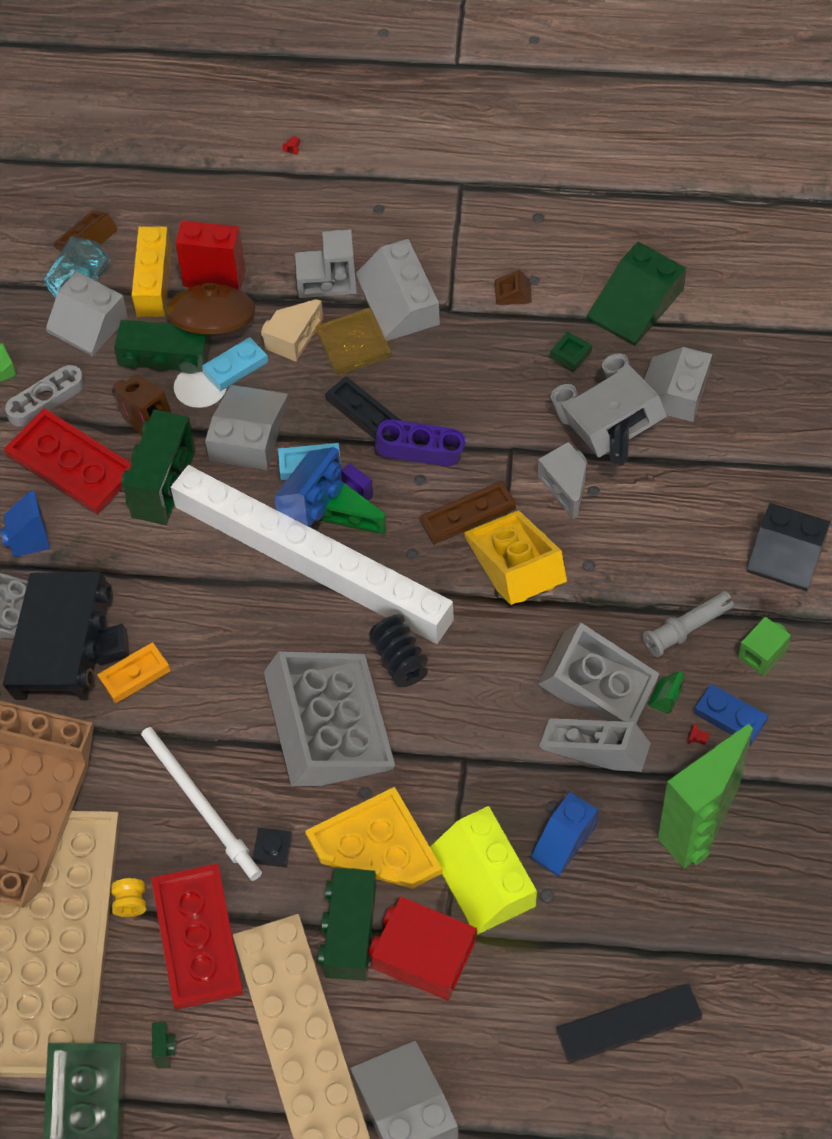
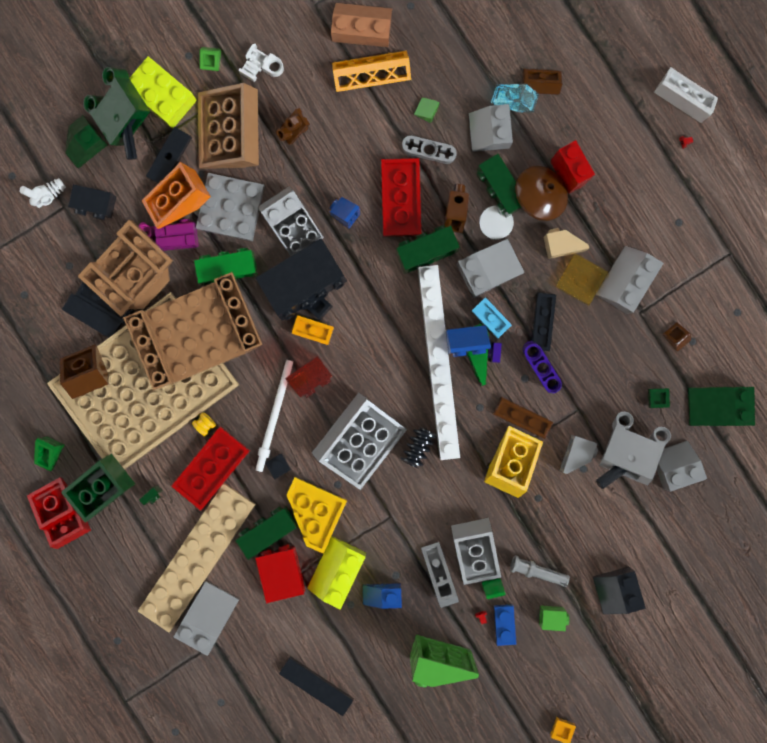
camera: 50 degrees right, 30 degrees up
(151, 272) = (543, 139): yellow brick -> none
(189, 711) = (310, 377): none -> clear red slope
(235, 364) = (521, 230): medium azure plate -> none
(242, 115) = (686, 95): none -> white slope
(329, 270) = (614, 232): light grey brick -> none

